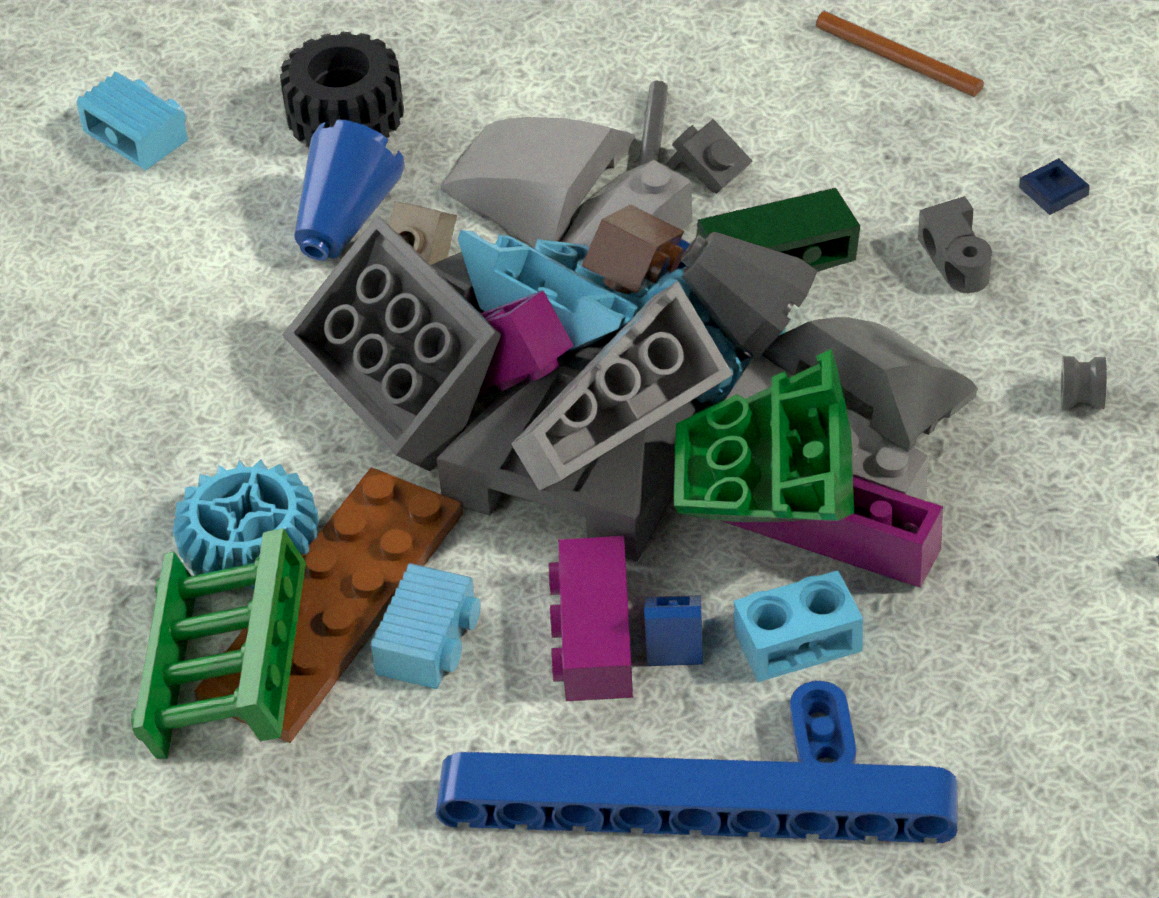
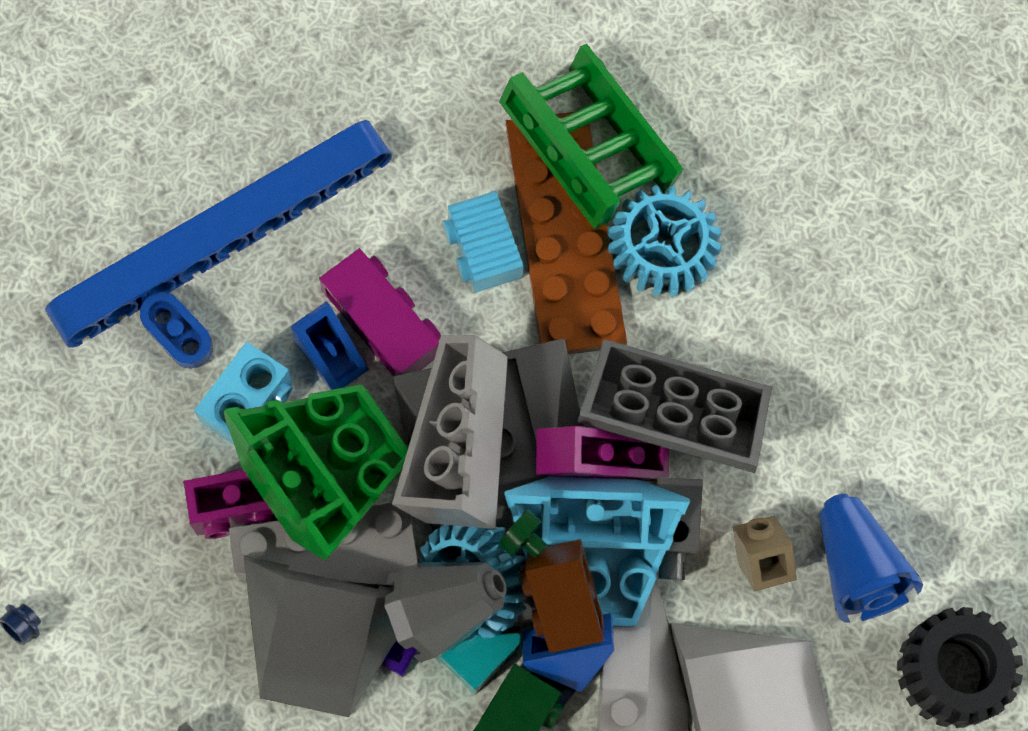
camera: 135 degrees right, 25 degrees up
(634, 282) = (523, 535): none -> dark green tile

